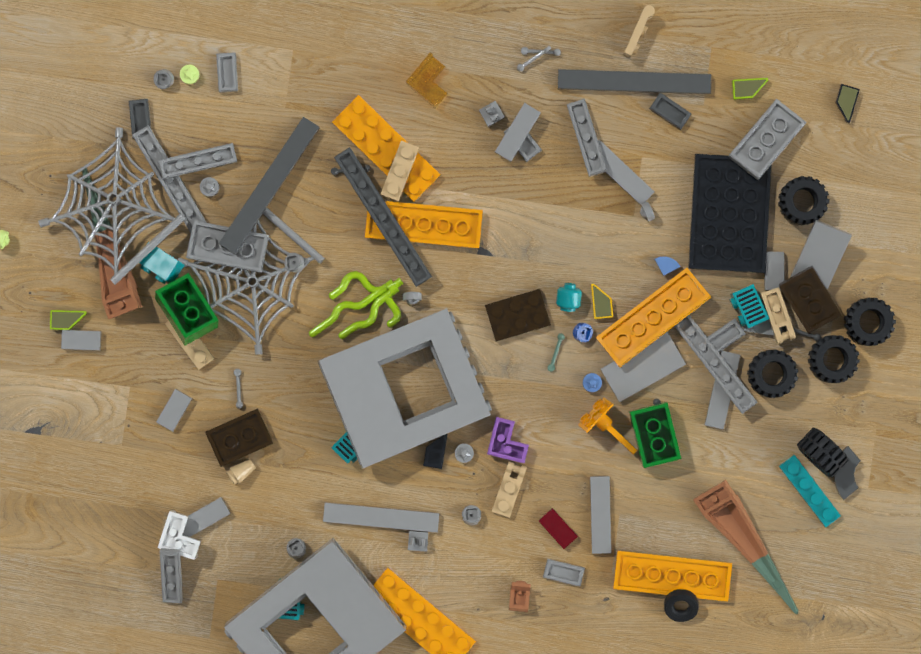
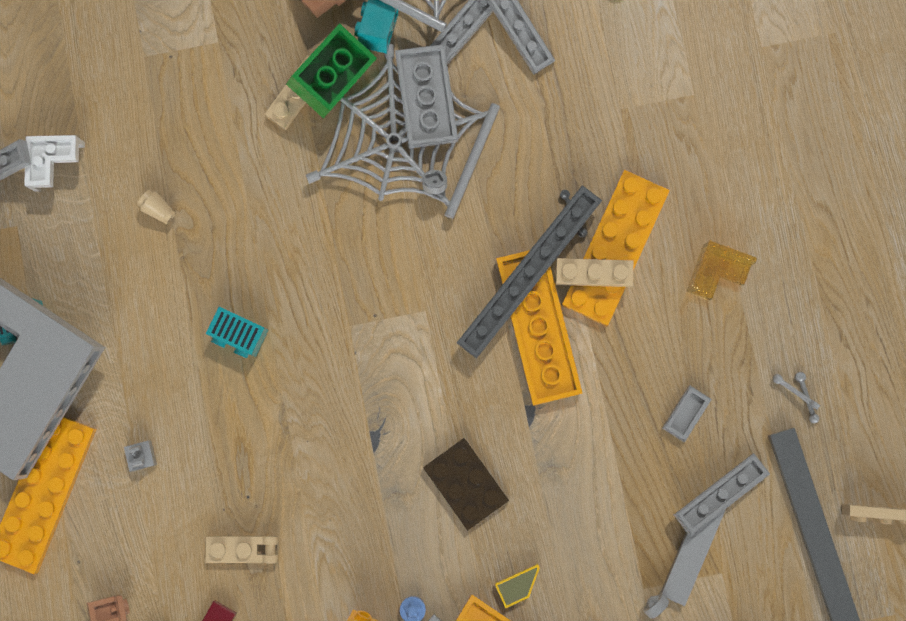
camera: 75 degrees right, 5 degrees down
(174, 410) = (206, 102): light grey tile -> none
(206, 516) = (87, 184): light grey tile -> none
(209, 187) = (491, 52): light grey tile -> none
(227, 72) = (638, 25): light grey tile -> none
(237, 372) = (277, 163): light grey hinge -> none
(239, 437) = (197, 191): dark brown plate -> none
(269, 185) = (518, 120): dark grey tile -> none
(296, 548) = (82, 307): light grey tile -> none
(368, 403) = (291, 331): light grey panel -> none
(379, 294) = (432, 303): lime plant -> none
(381, 517) = (155, 400): light grey tile -> none
(412, 297) = (441, 343): light grey tile -> none
(435, 453) = (257, 440): black tile -> none
(464, 453) = (269, 476): light grey tile -> none
(471, 515) = (193, 512): light grey tile -> none
(491, 113) = (706, 363): light grey tile -> none
(502, 446) = (293, 521): medium lavender brick -> none
(517, 132) = (696, 403): light grey tile -> none
(551, 367) = (414, 549): sand green hinge -> none
(568, 297) = (510, 542): teal head -> none
(583, 332) = (472, 575): tile -> none
(670, 111) = (794, 590): dark grey tile -> none

